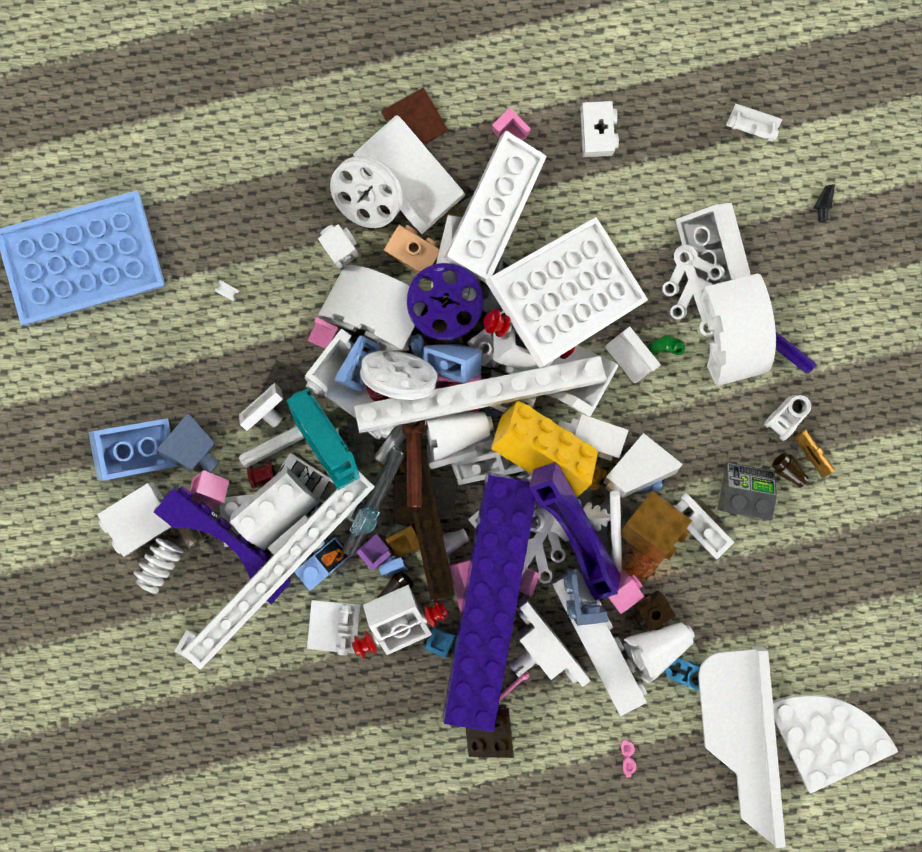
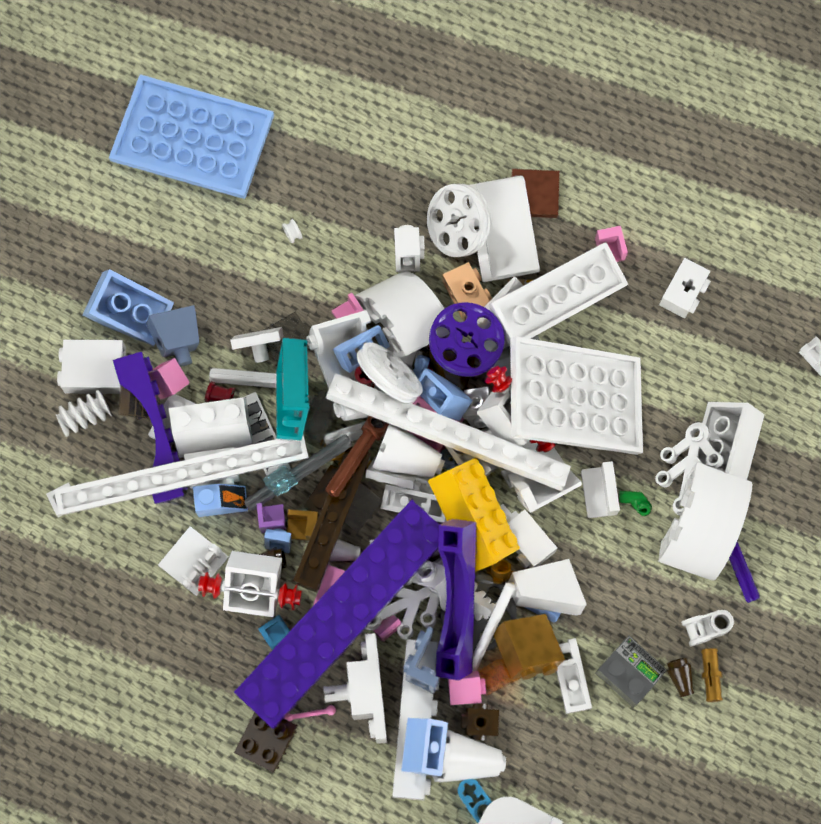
camera: 30 degrees right, 15 degrees down
(624, 666) = (424, 746): none -> light blue brick

